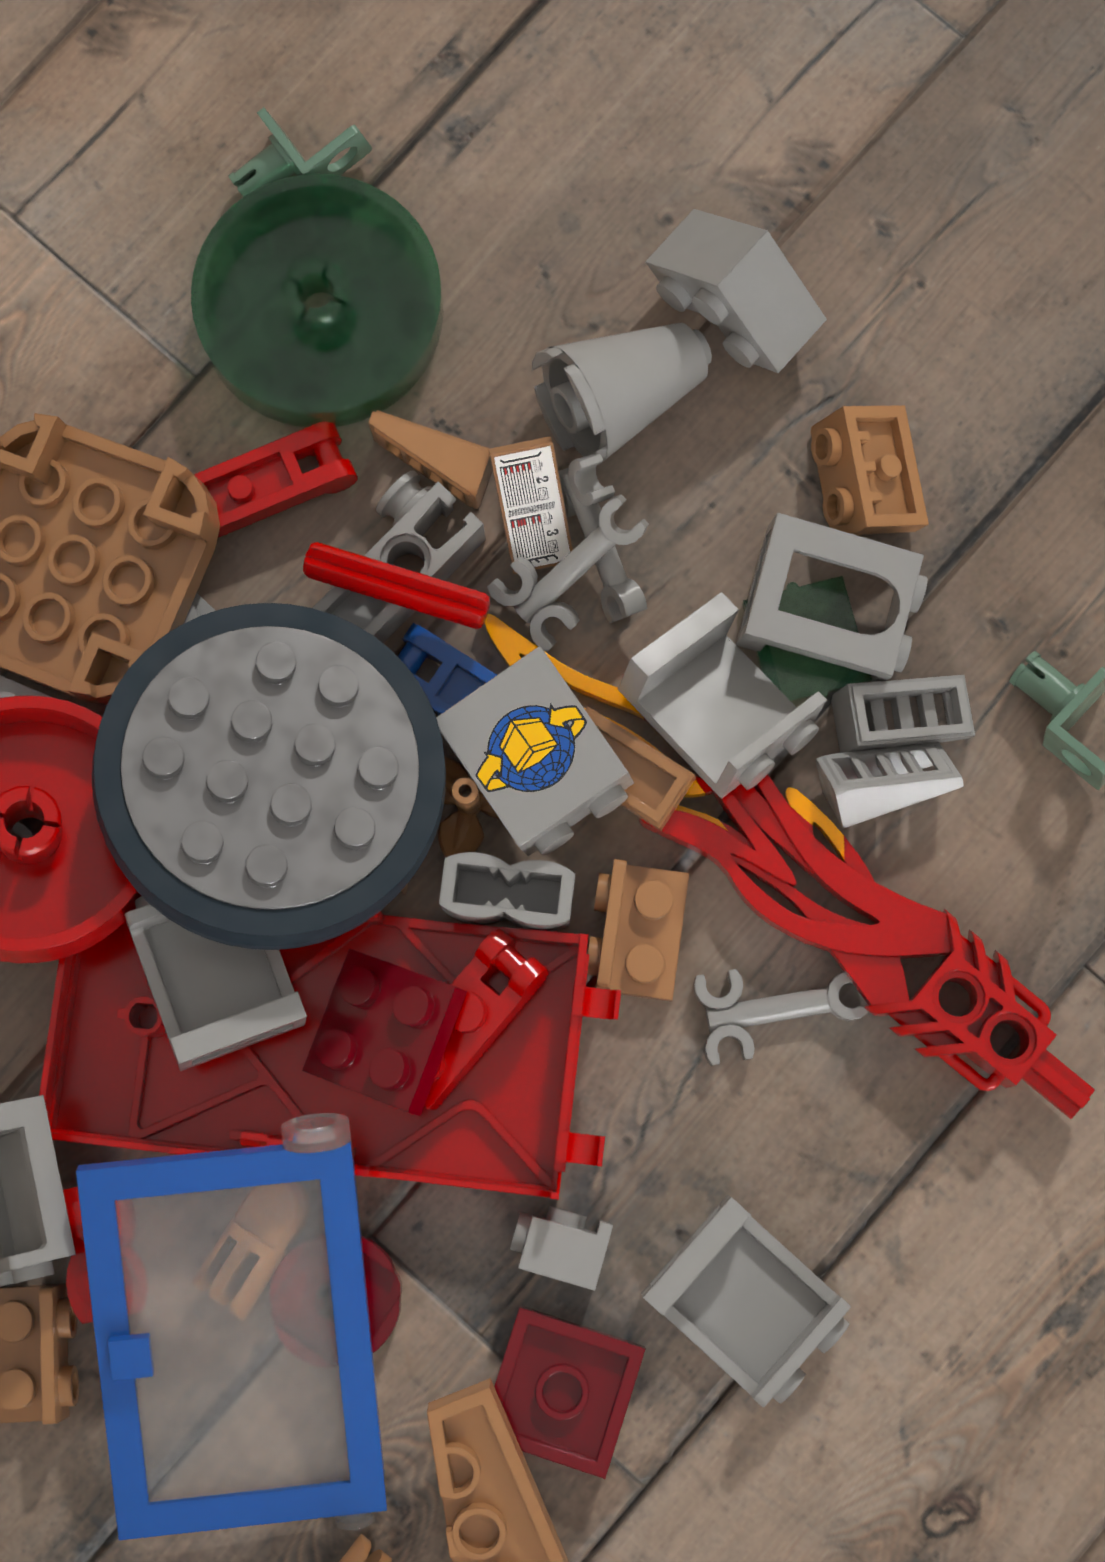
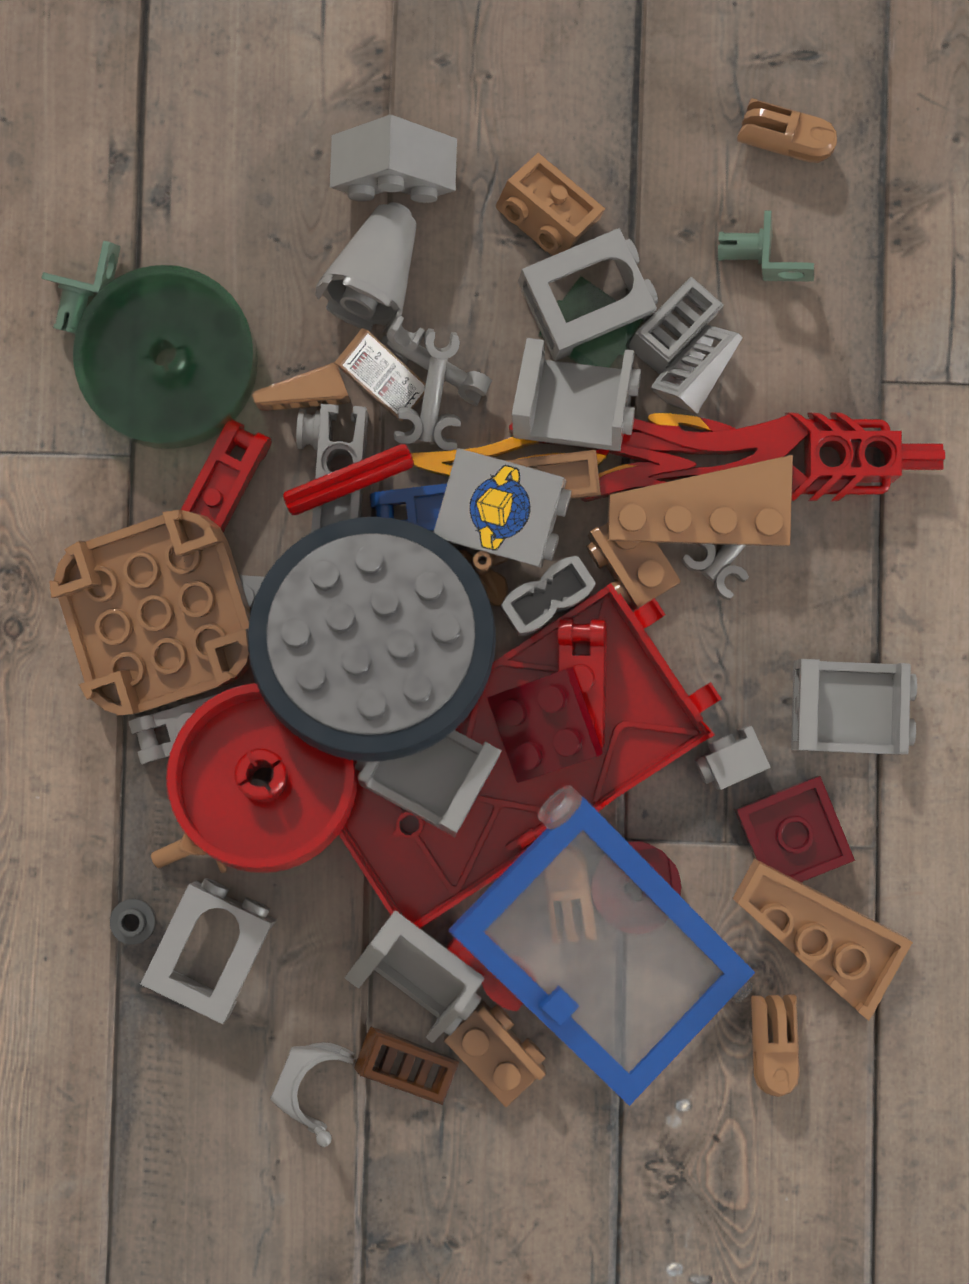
camera: 40 degrees left, 5 degrees up
(780, 952) = (718, 507): none -> medium nougat wing

